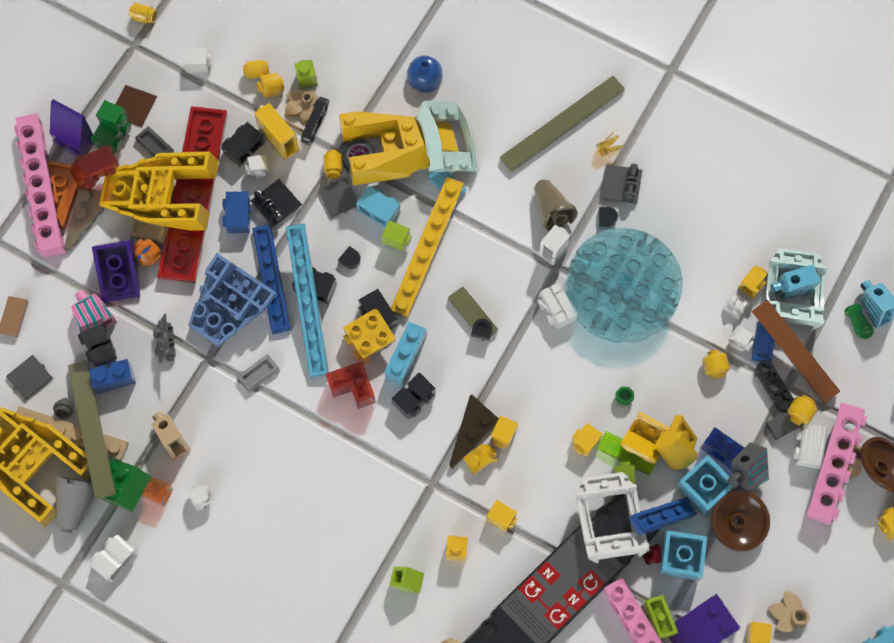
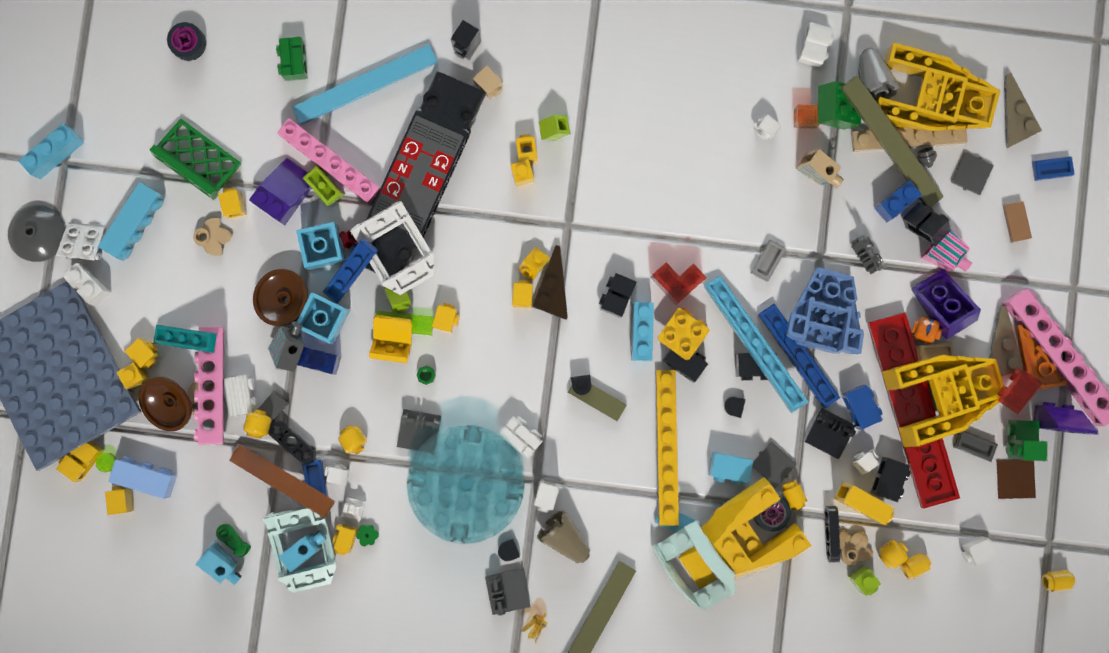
camera: 155 degrees right, 15 degrees up
(396, 236) = (700, 444): lime brick -> none
(424, 74) = (747, 631): blue cylinder -> none
(445, 563) = (526, 141): none -> yellow brick
(502, 516) = (494, 218): yellow brick -> none
(651, 352) = (417, 428): none -> dark grey hinge
(678, 444) = (358, 343): yellow brick -> none
(734, 274) = (364, 540): none -> green plant
(847, 517) = (185, 338): none -> teal tile

